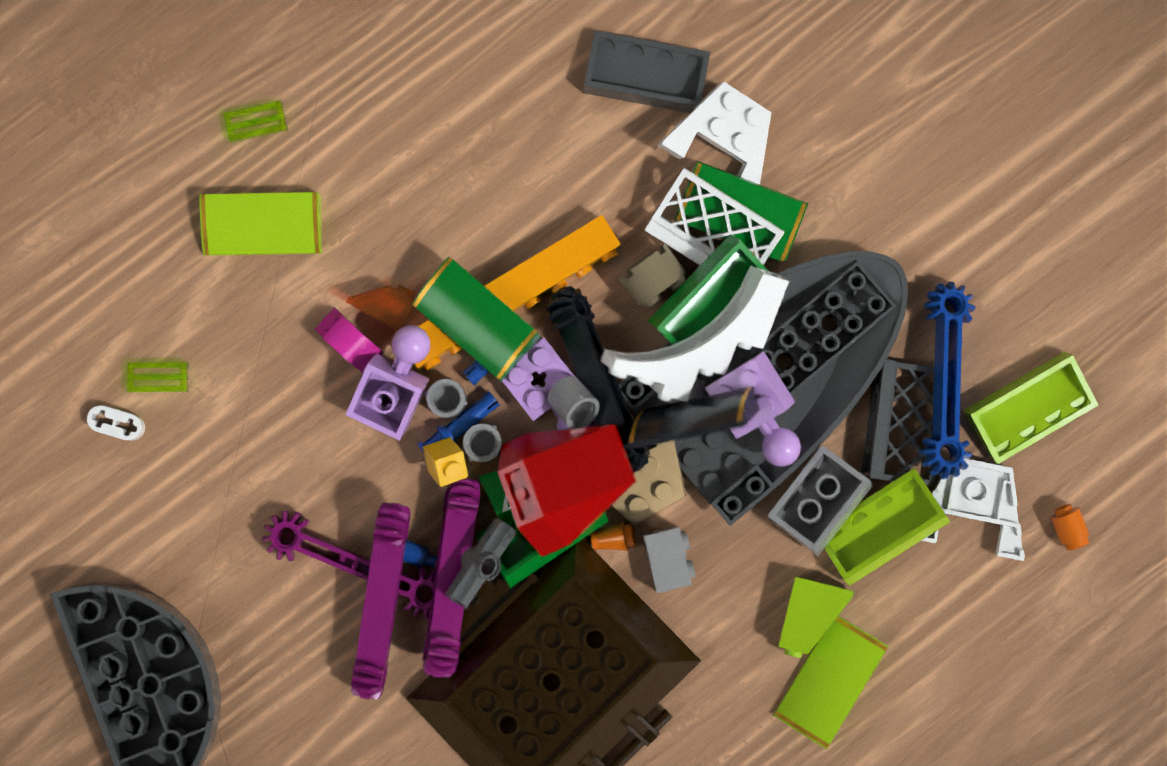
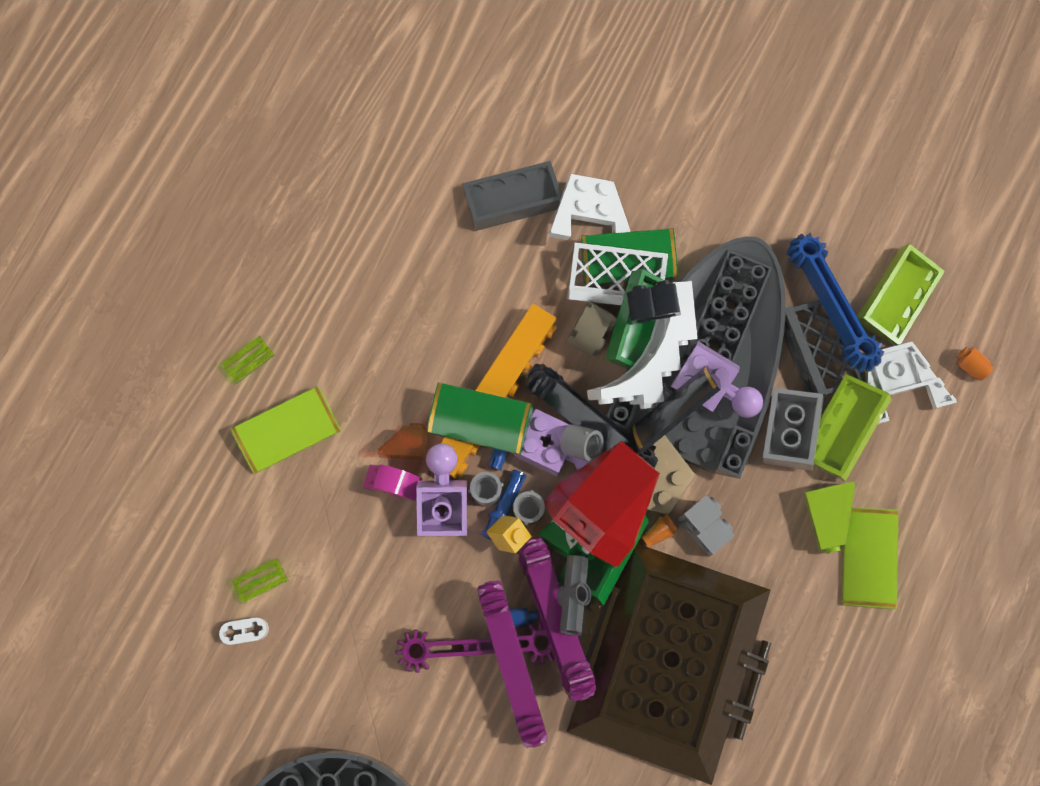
camera: 30 degrees left, 10 degrees down
(729, 287) = (654, 302): none -> black brick

